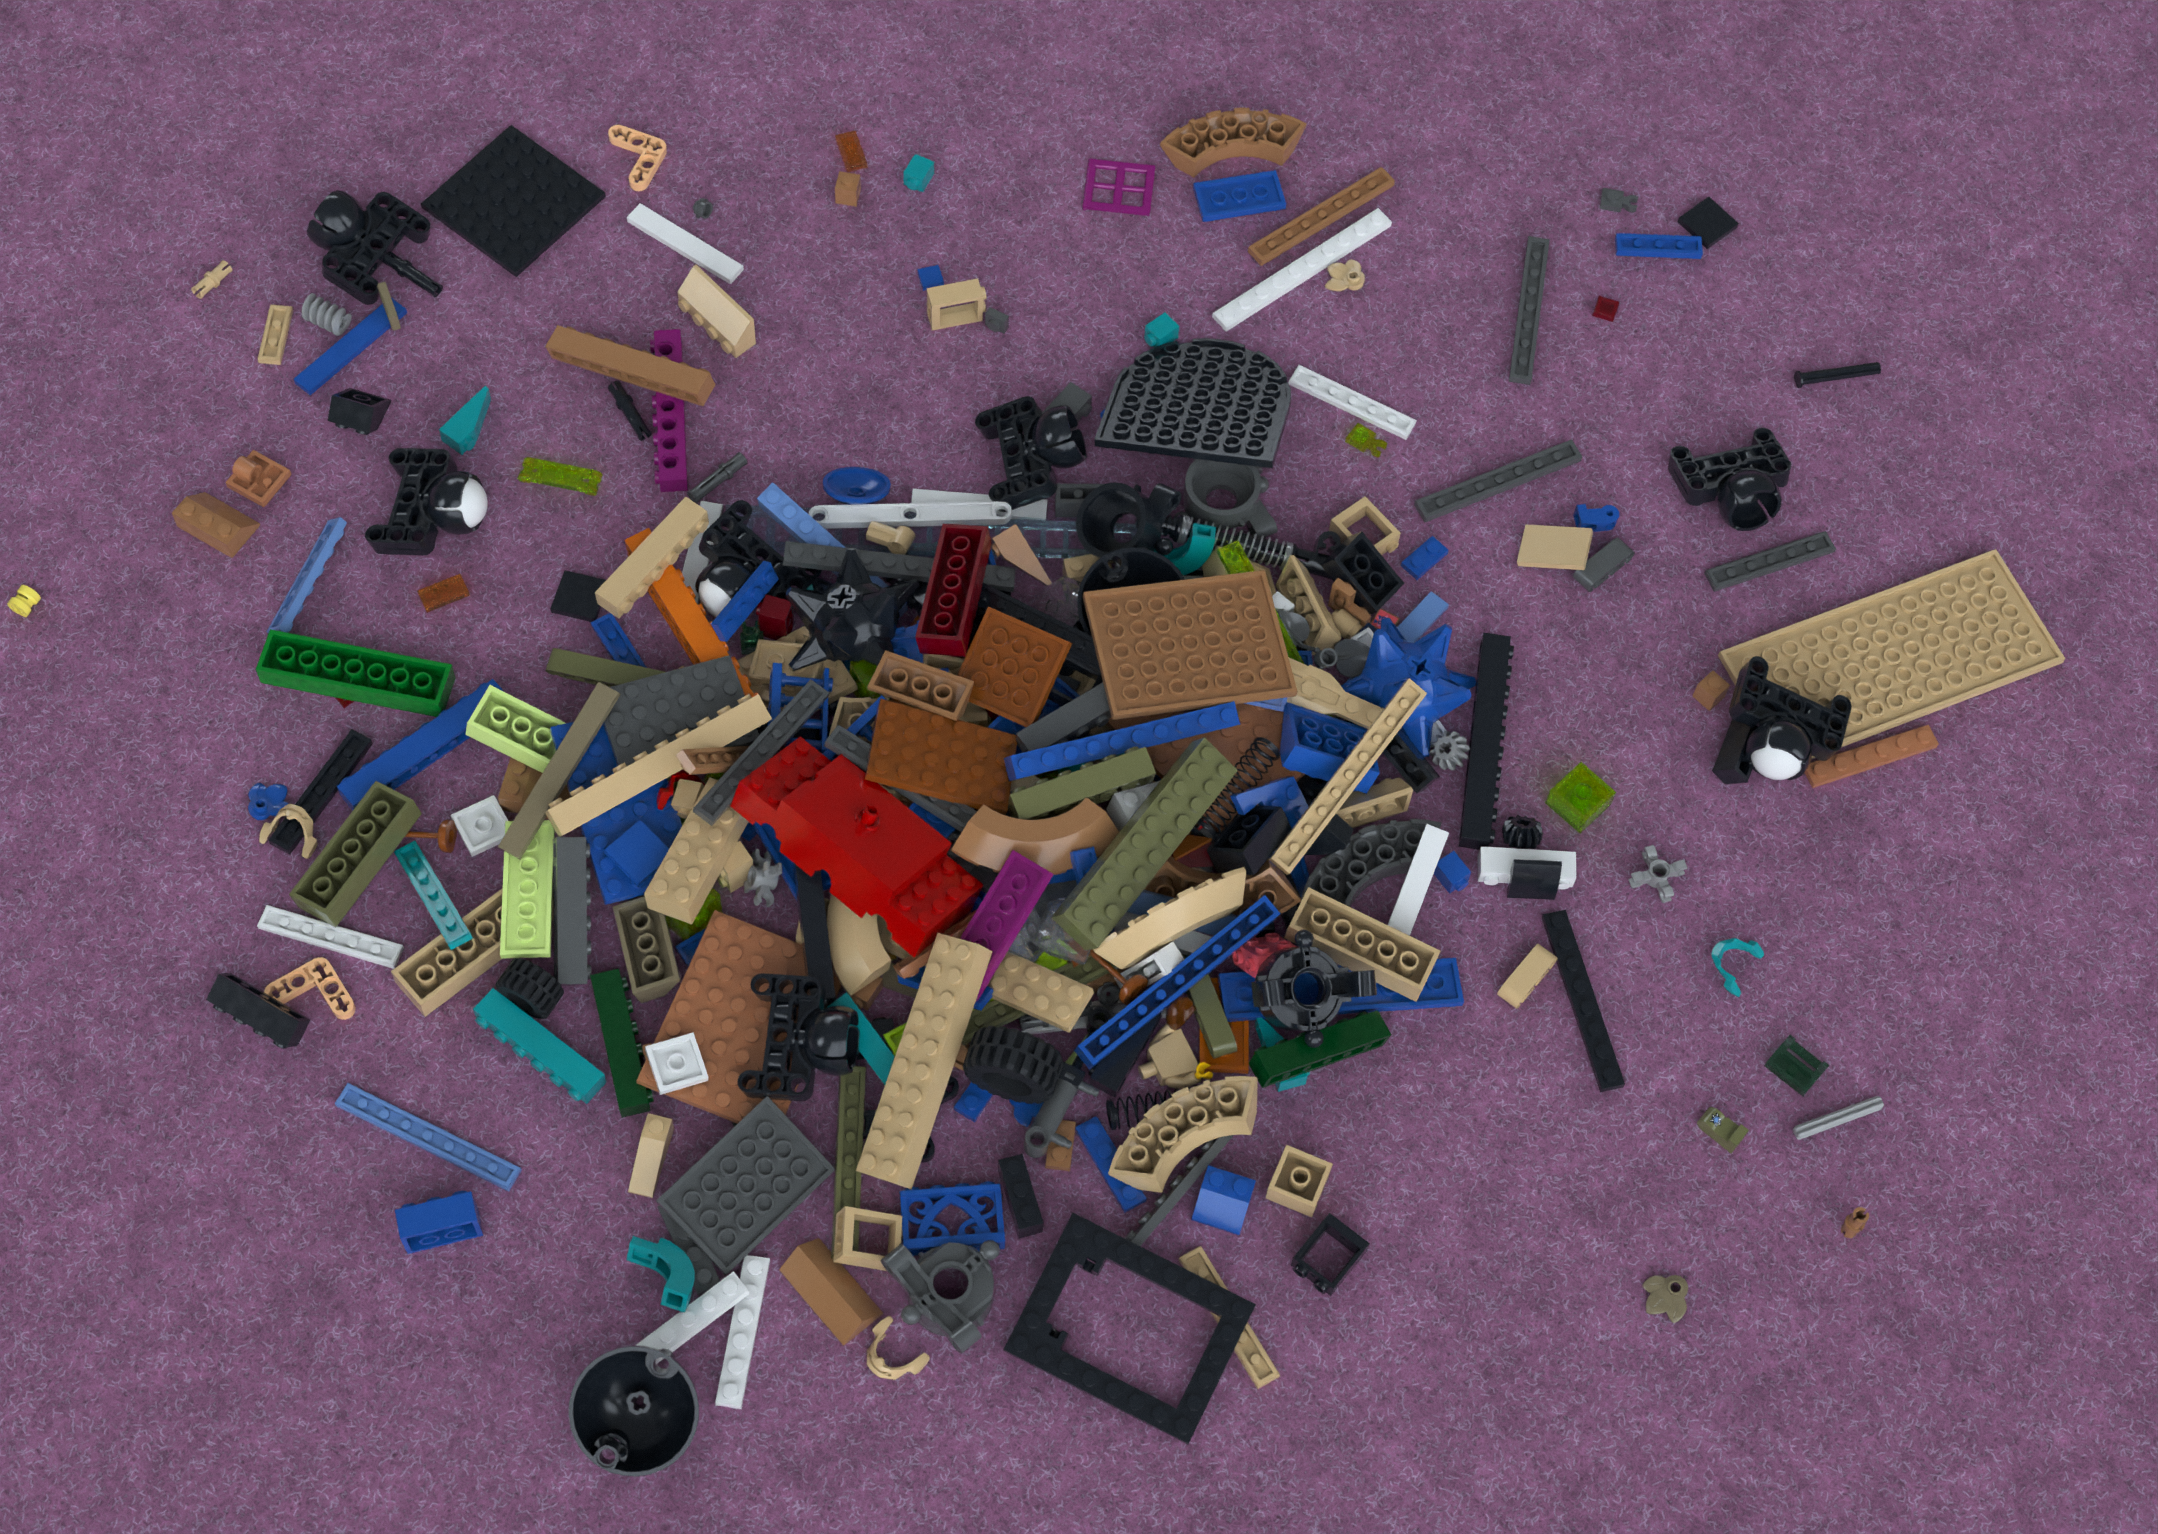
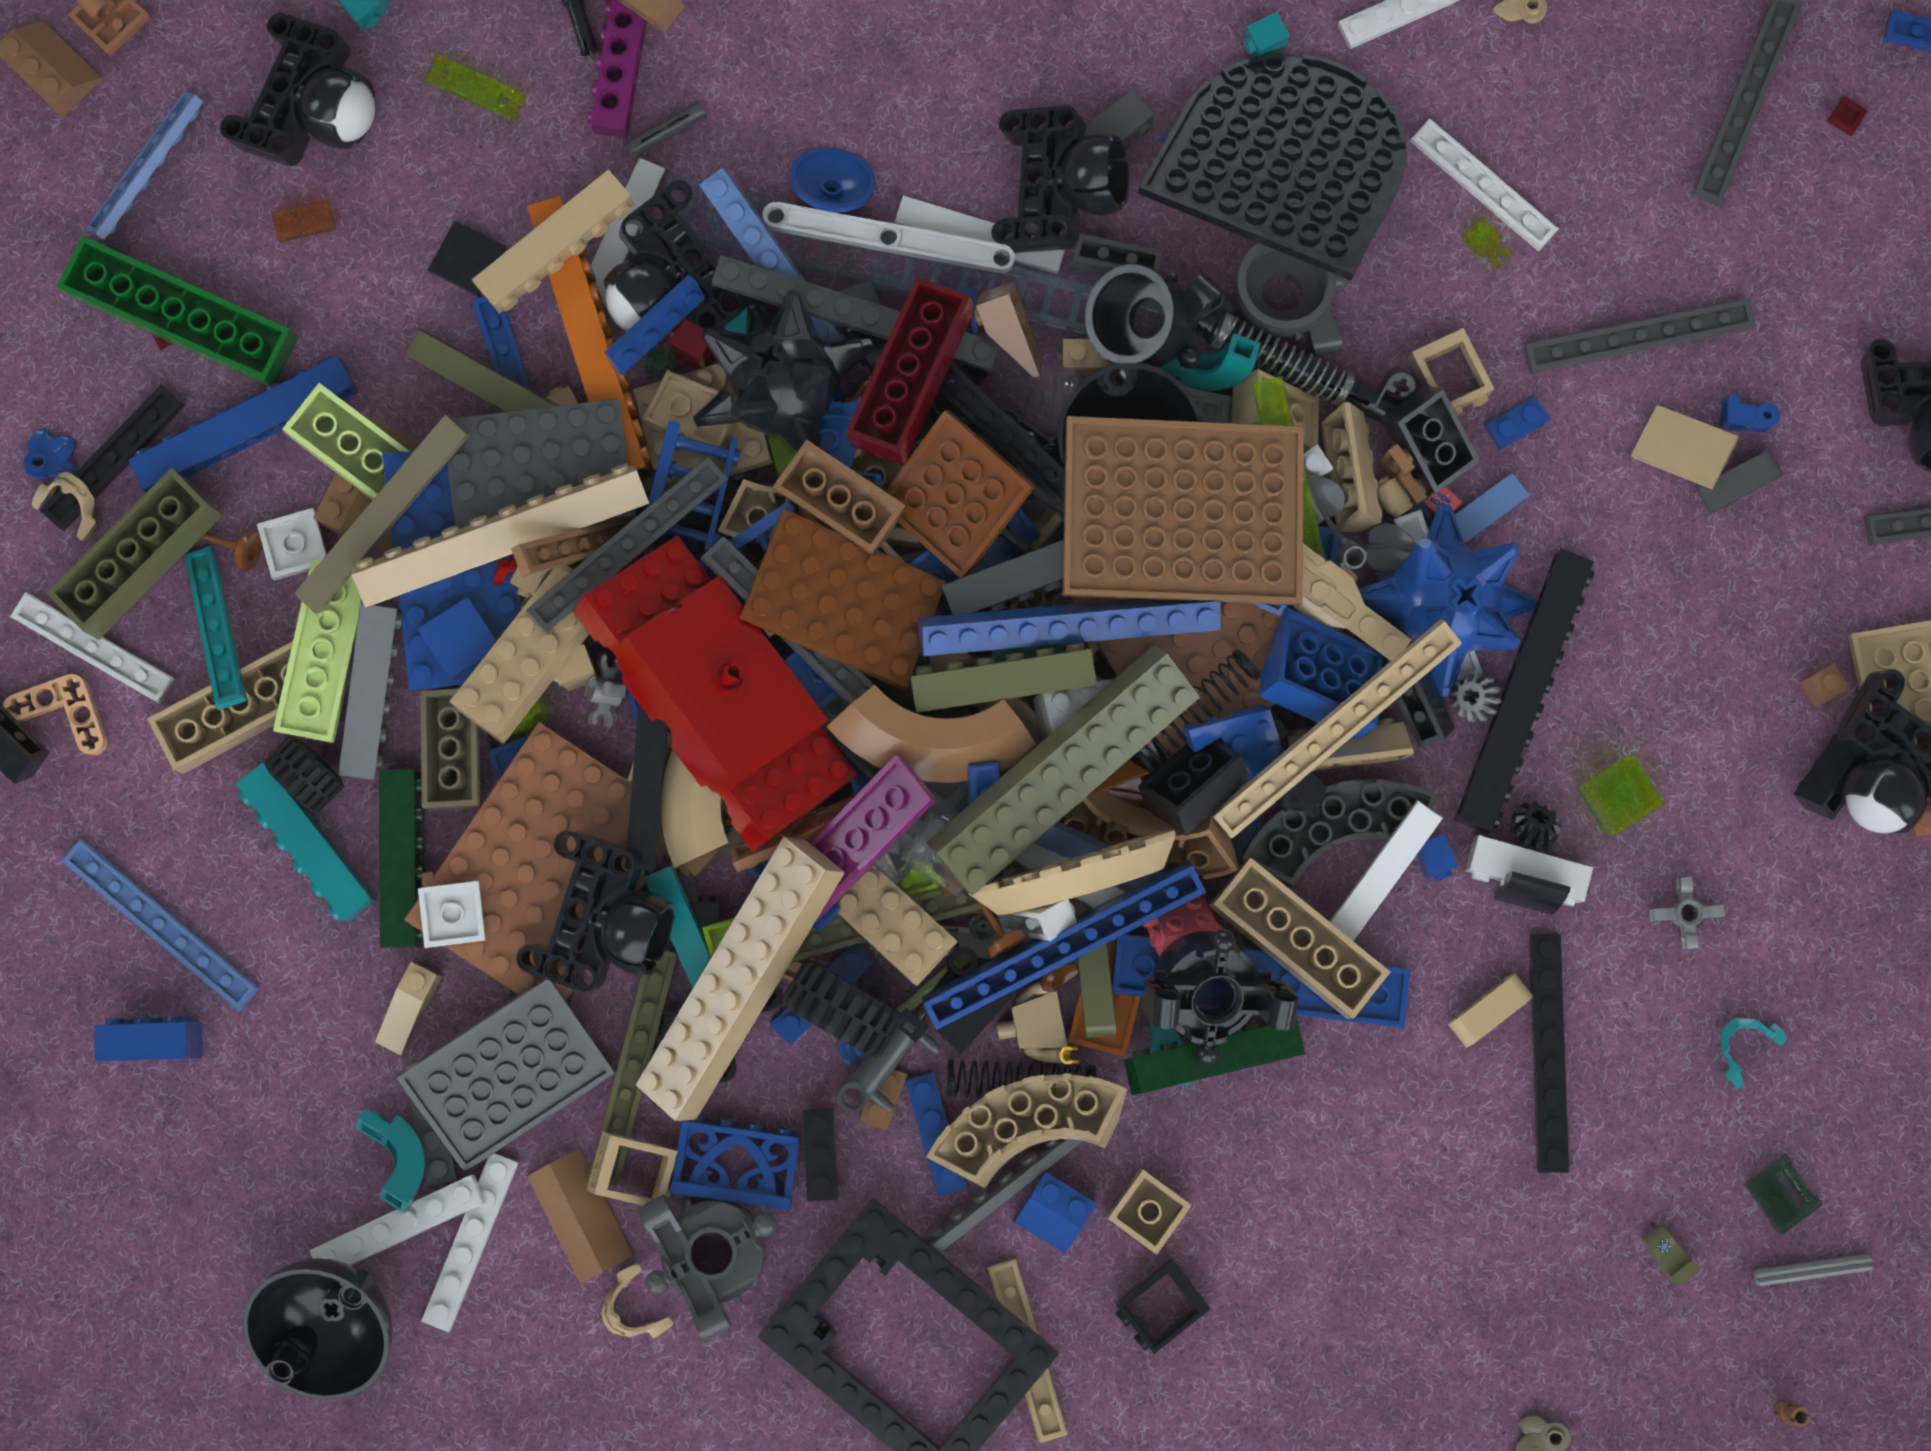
camera: 15 degrees right, 20 degrees up
(895, 539) = (862, 269): tan piece -> none

